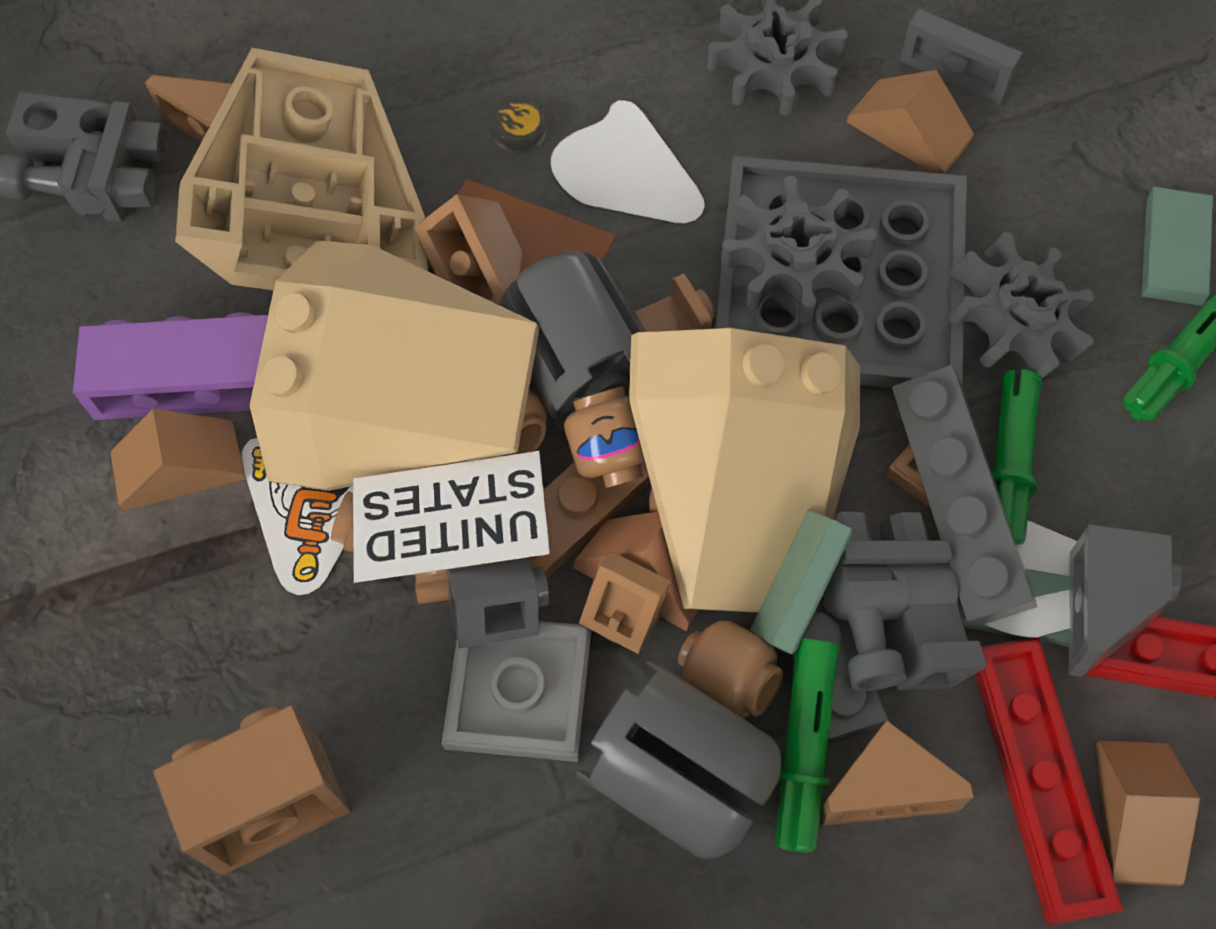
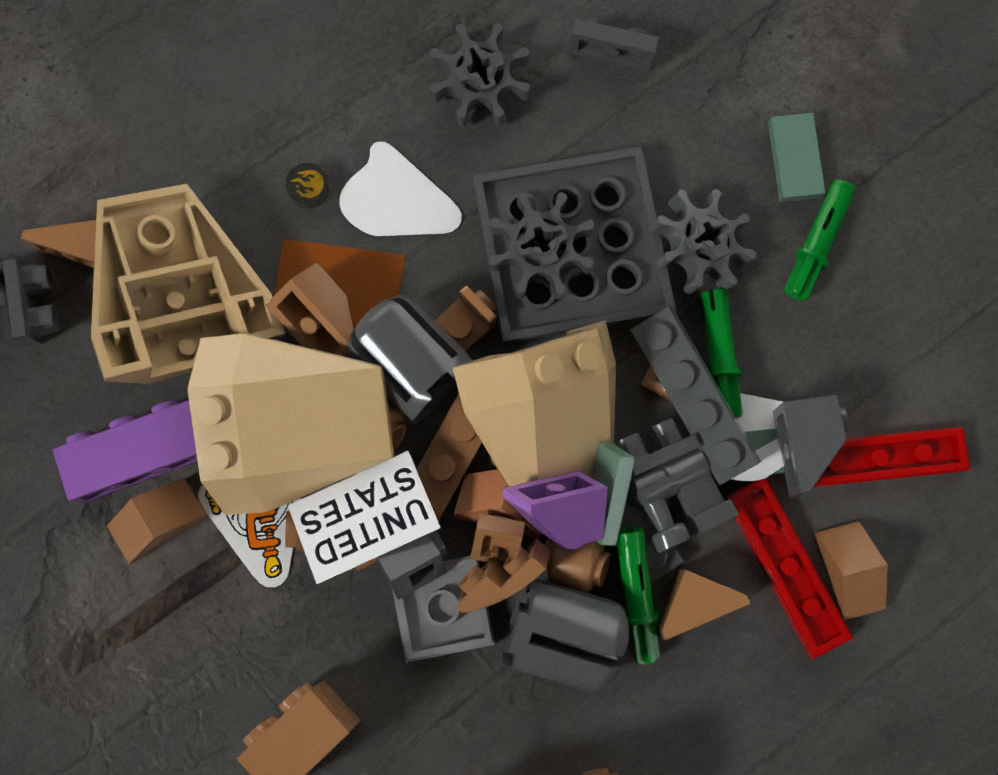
camera: 20 degrees left, 15 degrees up
(600, 651) = (498, 582): none -> medium nougat slope
(605, 438) = (450, 431): medium nougat head -> none
(727, 573) = (562, 507): none -> medium lavender slope
(914, 119) = (592, 105): medium nougat slope -> none

